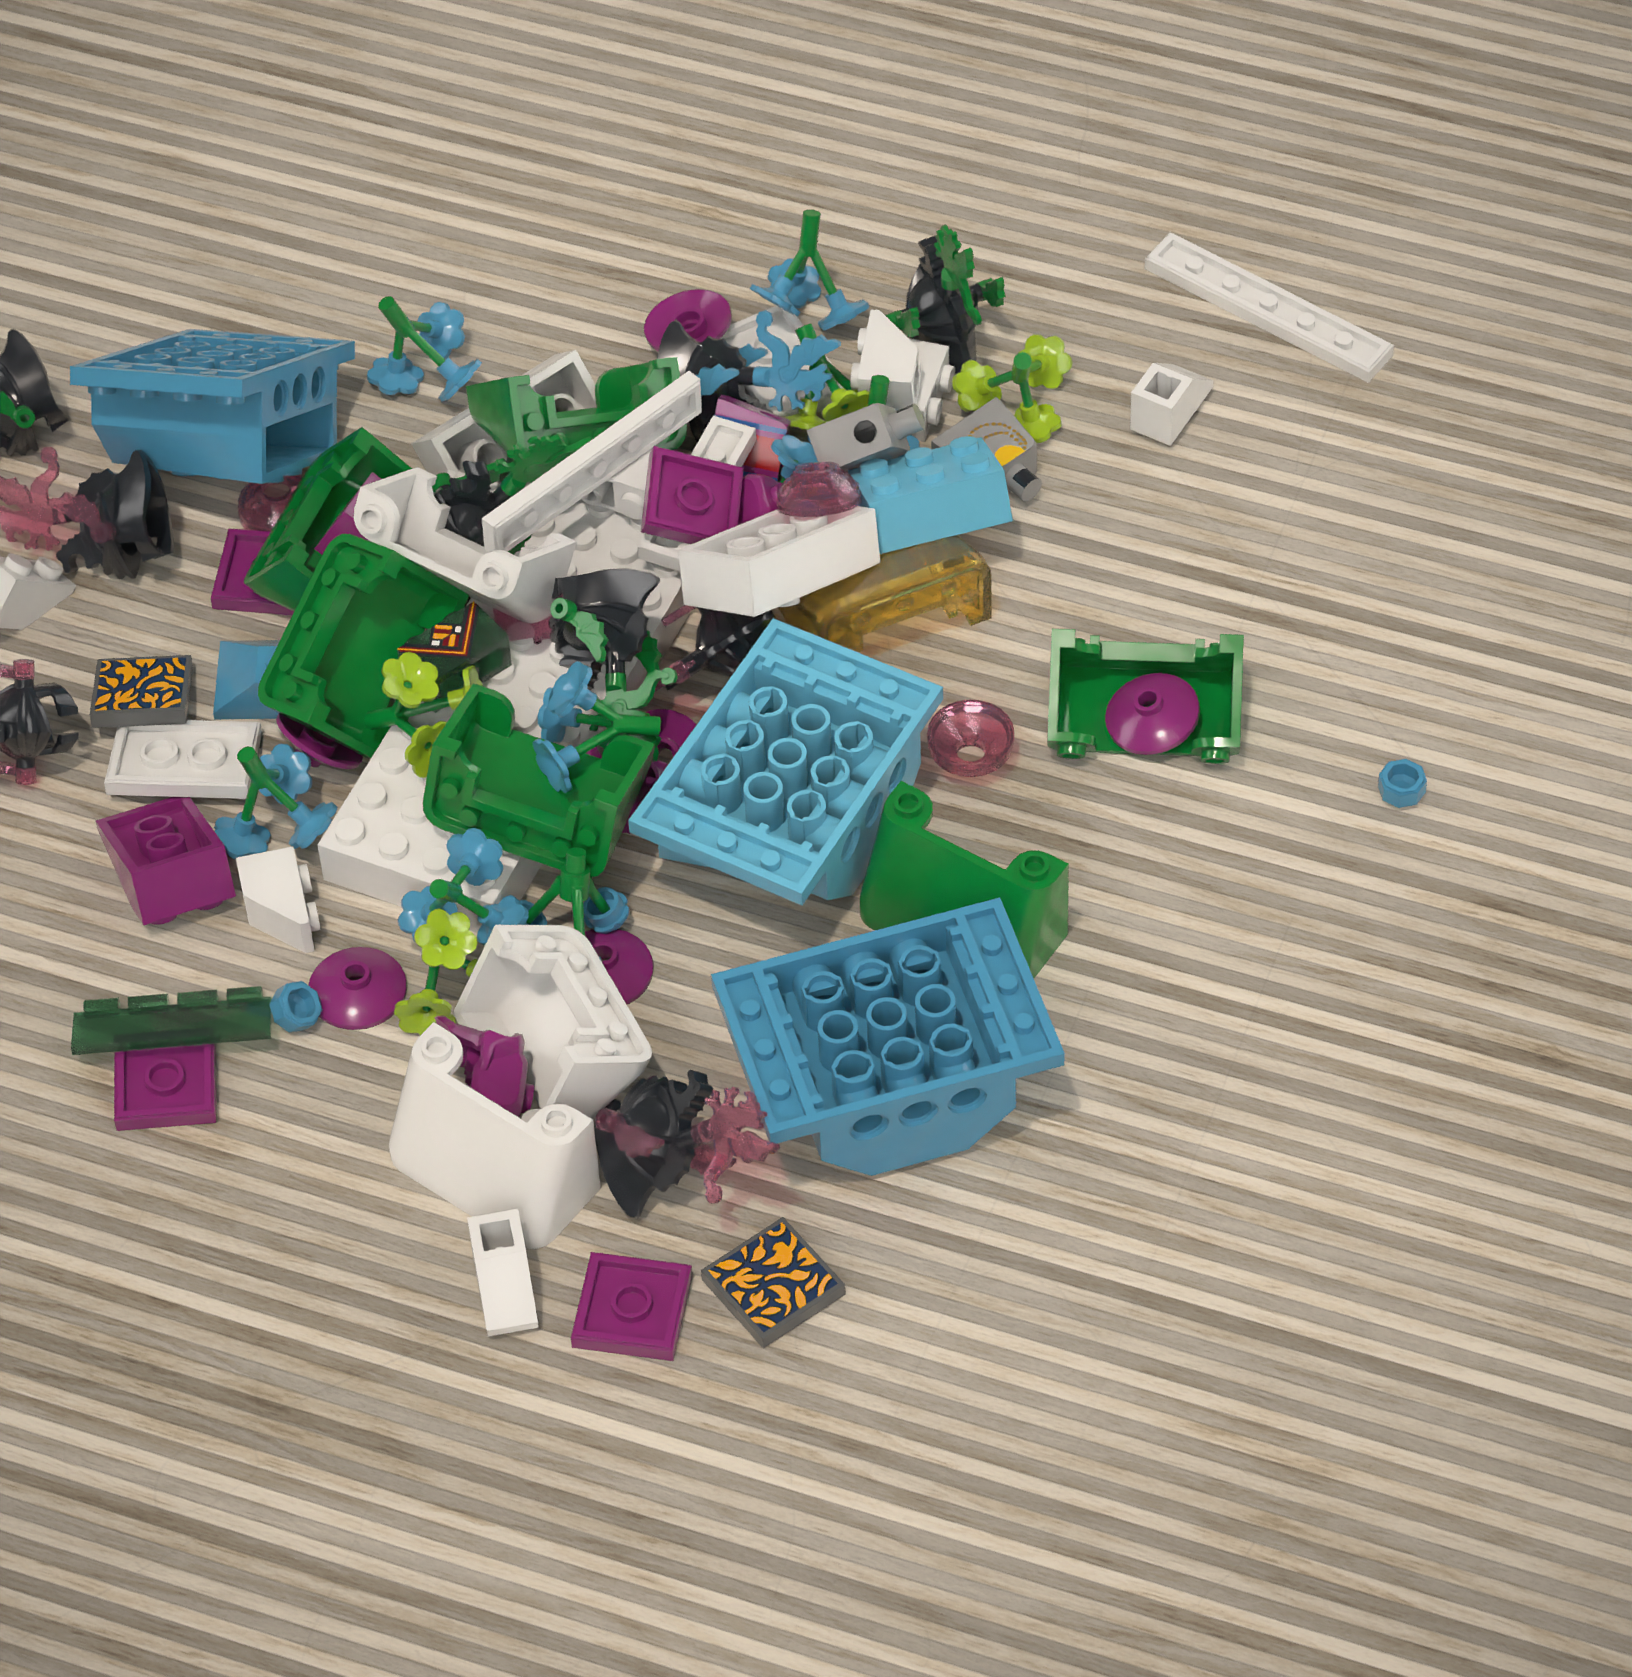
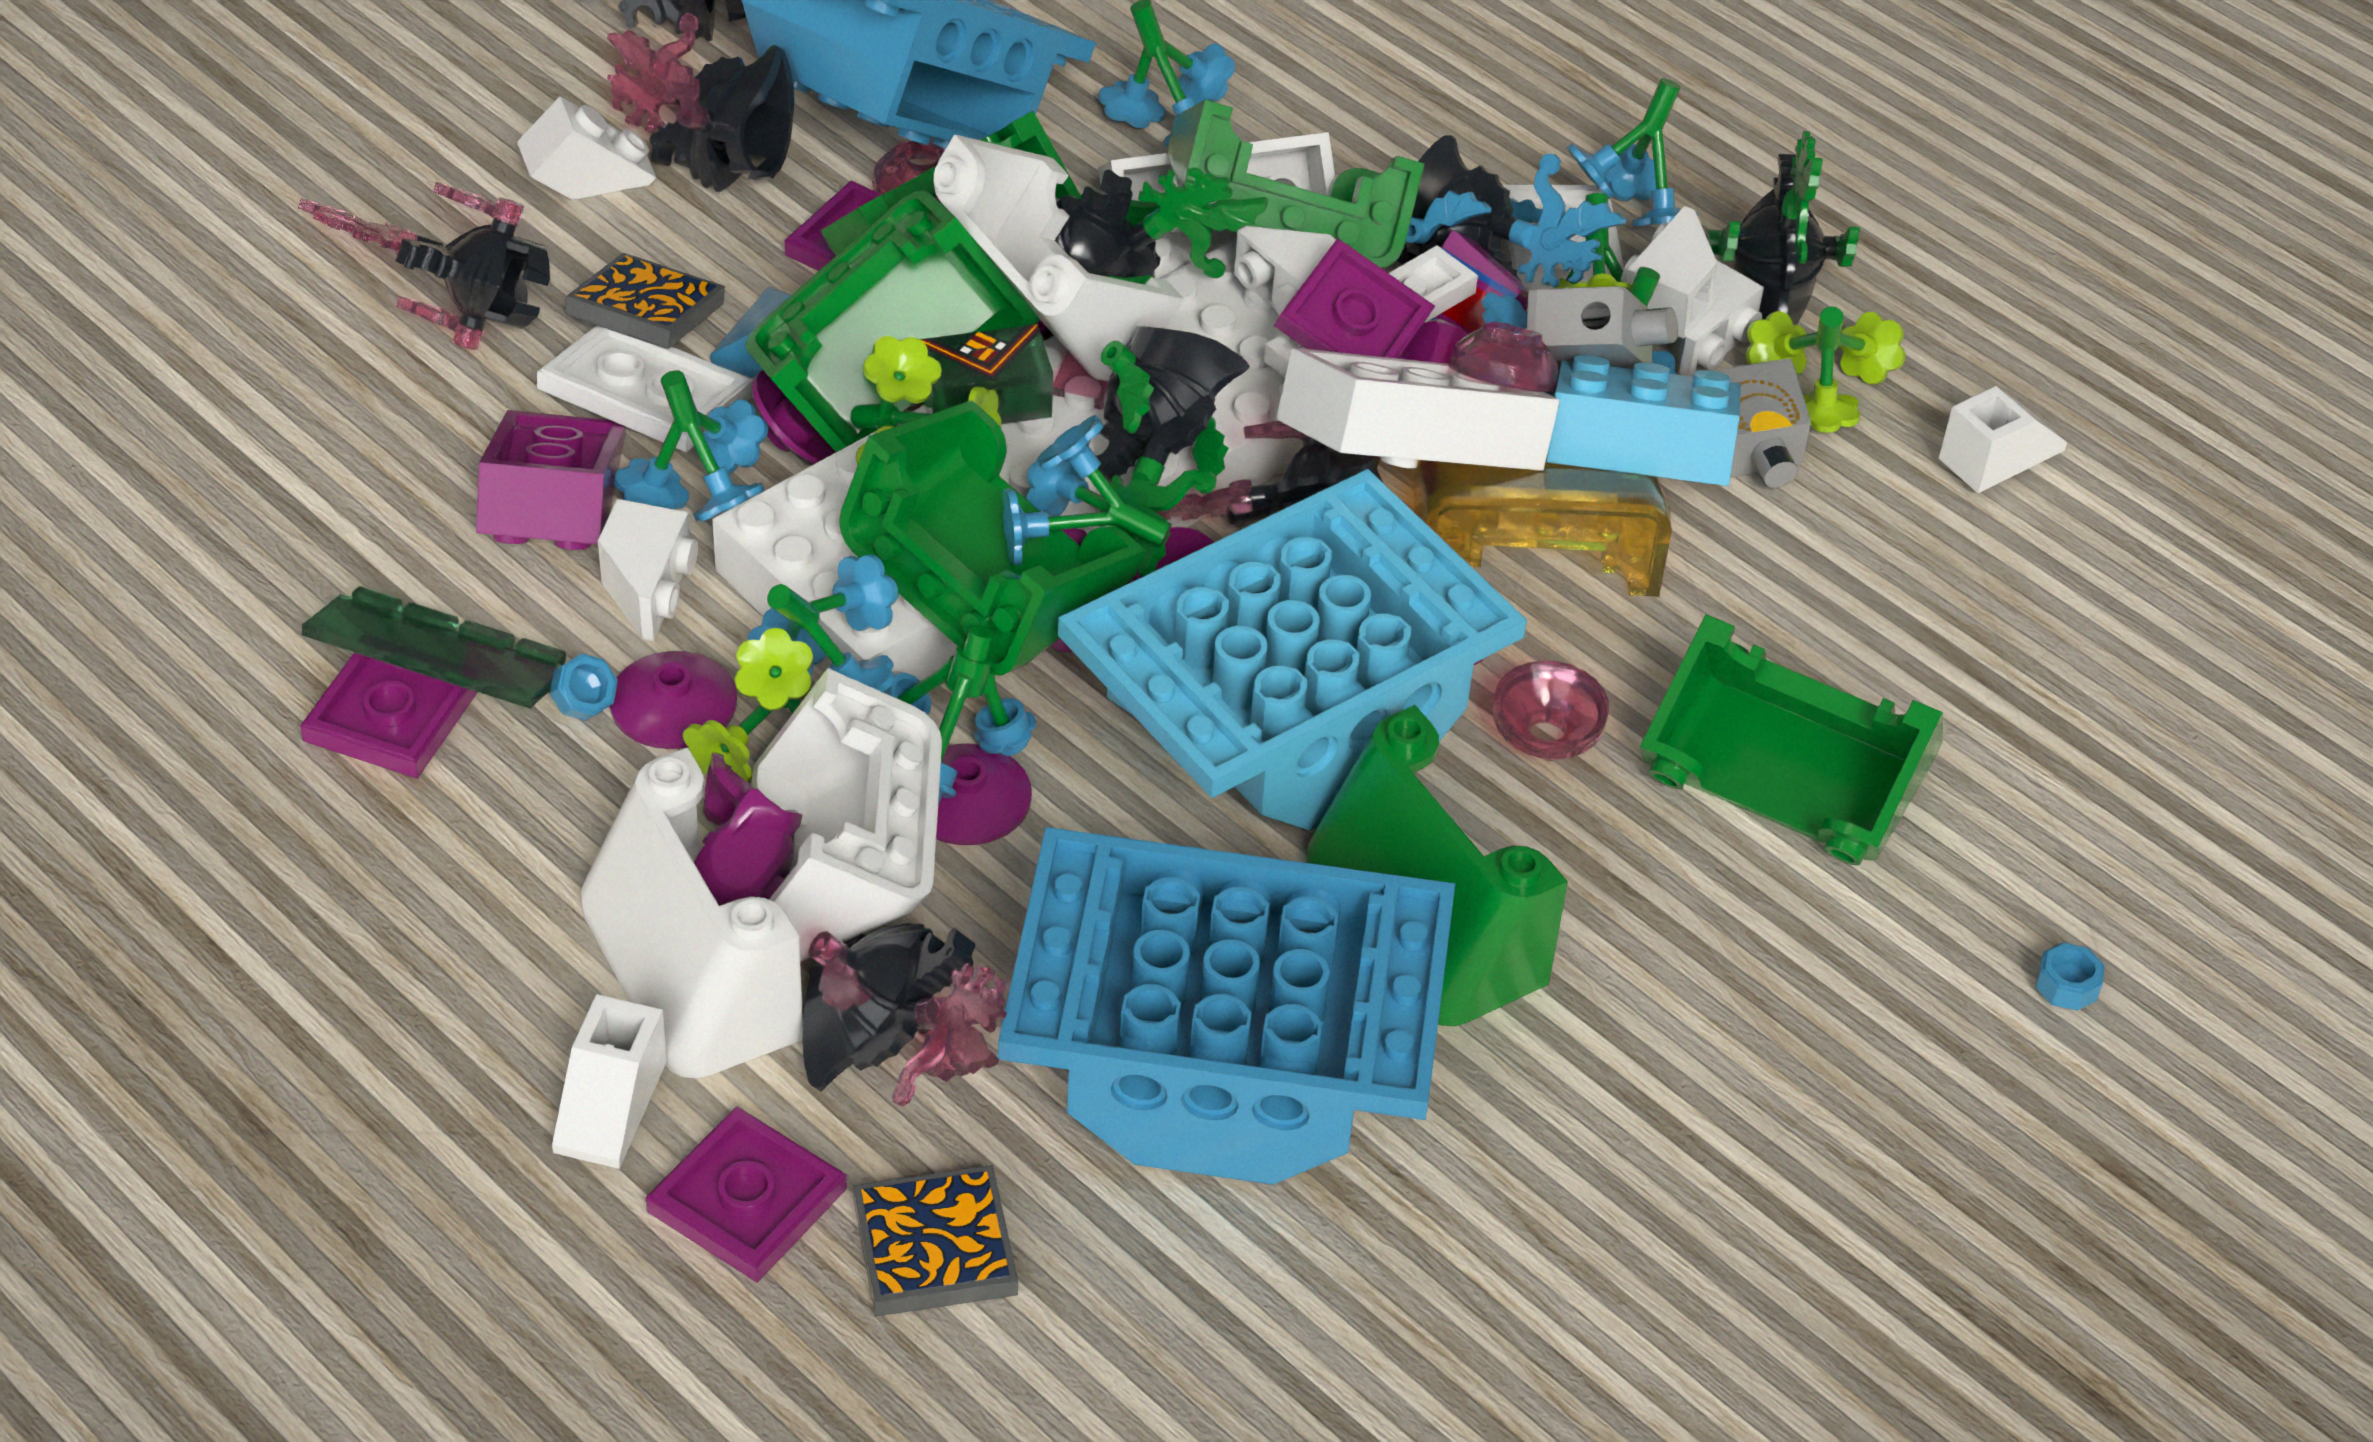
camera: 20 degrees right, 5 degrees down
(592, 464) = (1257, 229): white tile -> none
(698, 310) = (1499, 154): magenta dish -> none
(1154, 727) = (1792, 771): magenta dish -> none
(1269, 307) = (2180, 396): white tile -> none

